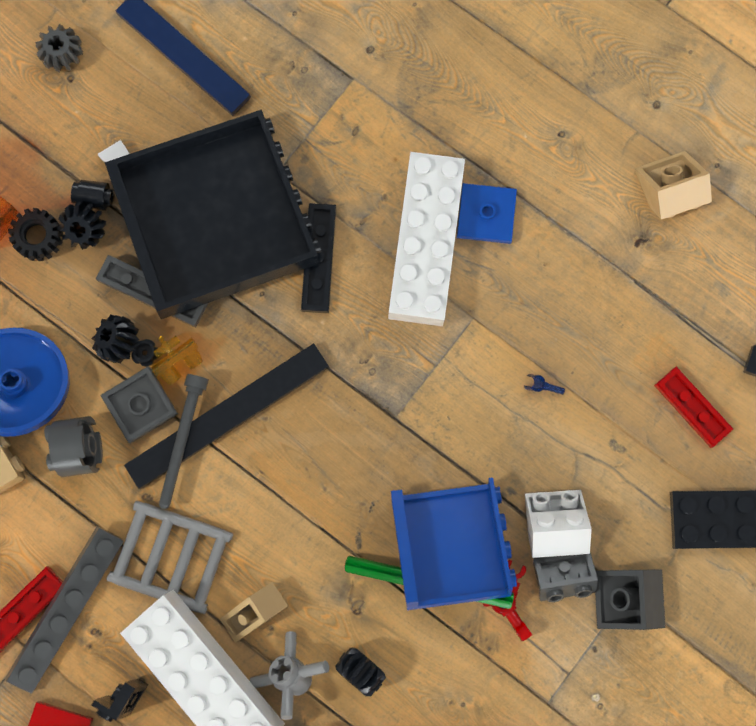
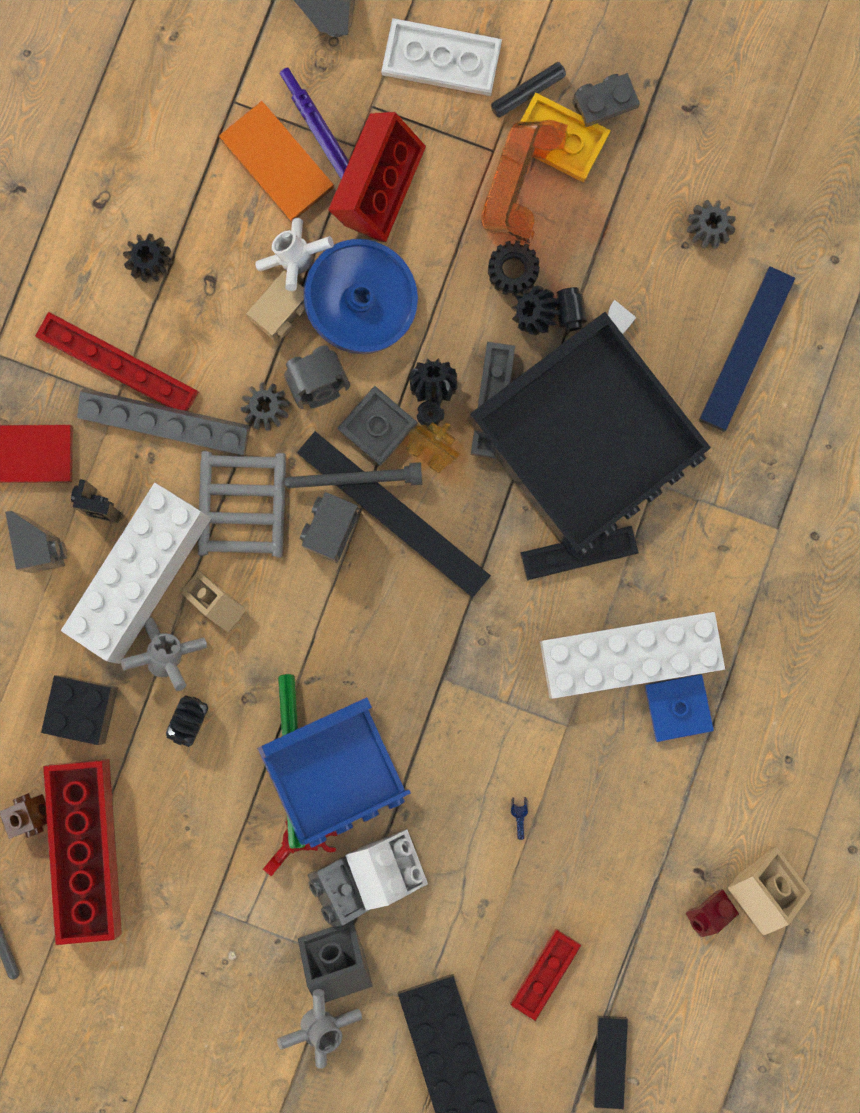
camera: 75 degrees right, 5 degrees up
(89, 494) = (275, 406): none -> dark grey gear
(220, 476) = (330, 527): none -> dark grey brick
(681, 241) = (712, 914): none -> dark red bracket
(689, 631) = (320, 1029): none -> light grey bar

